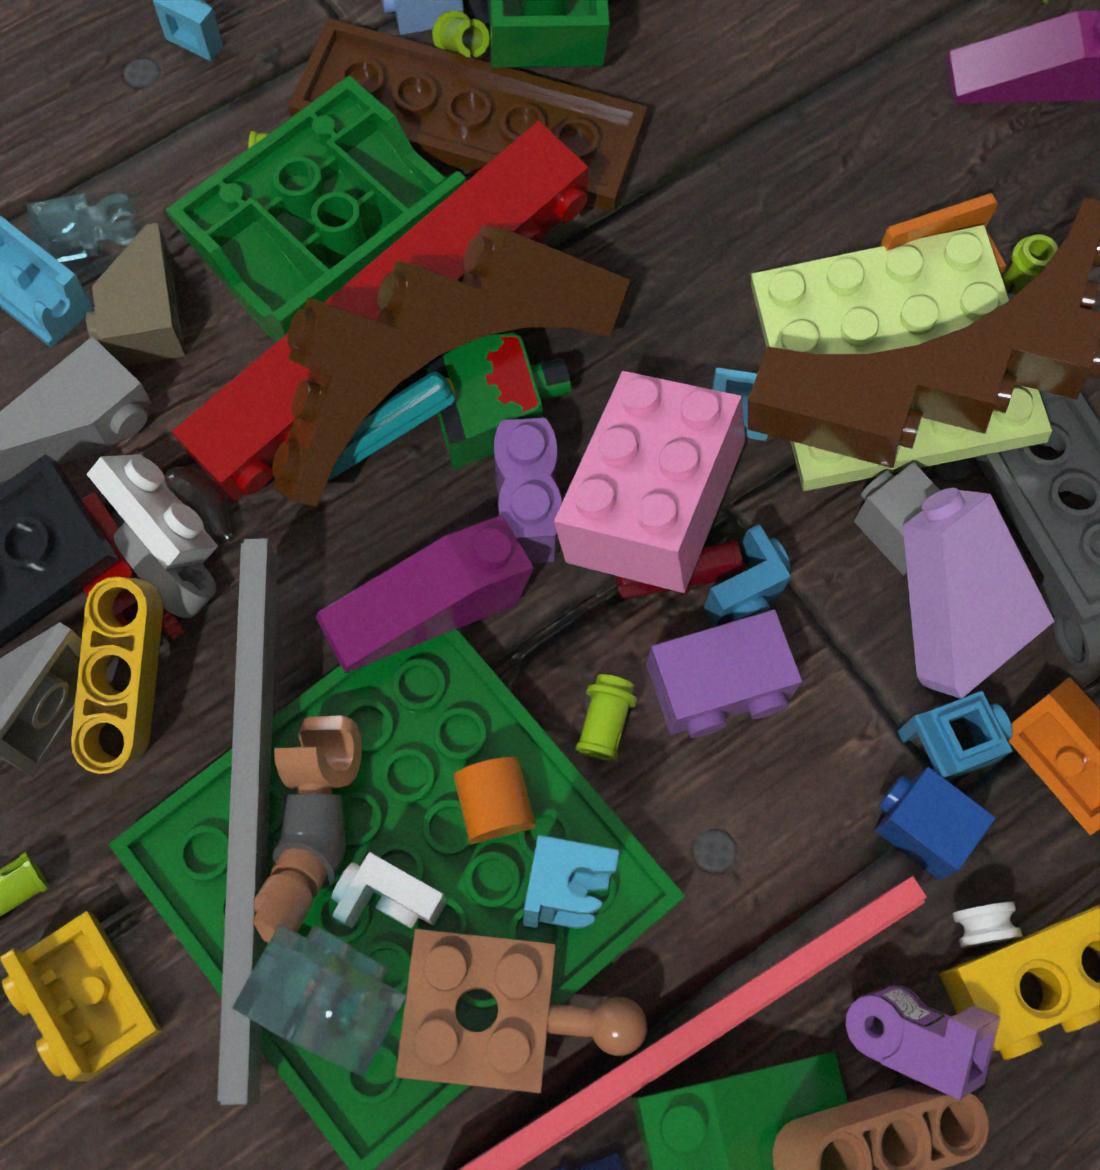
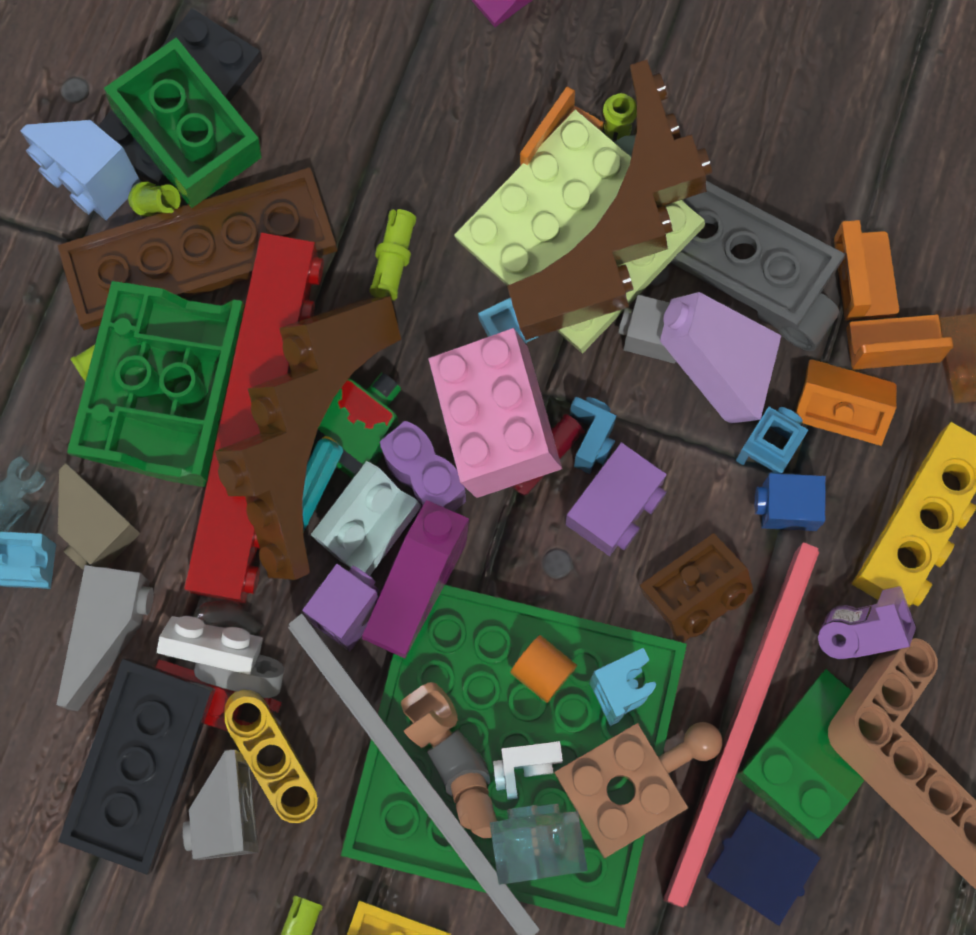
camera: 30 degrees left, 5 degrees up
(320, 562) = (343, 605): none -> medium lavender brick
(422, 495) = (366, 519): none -> light aqua bracket
(606, 717) = (567, 573): lime pin -> none
(670, 249) = (393, 254): none -> lime pin
(747, 843) = (698, 588): none -> reddish brown bracket
(987, 924) = (860, 538): white bush -> none

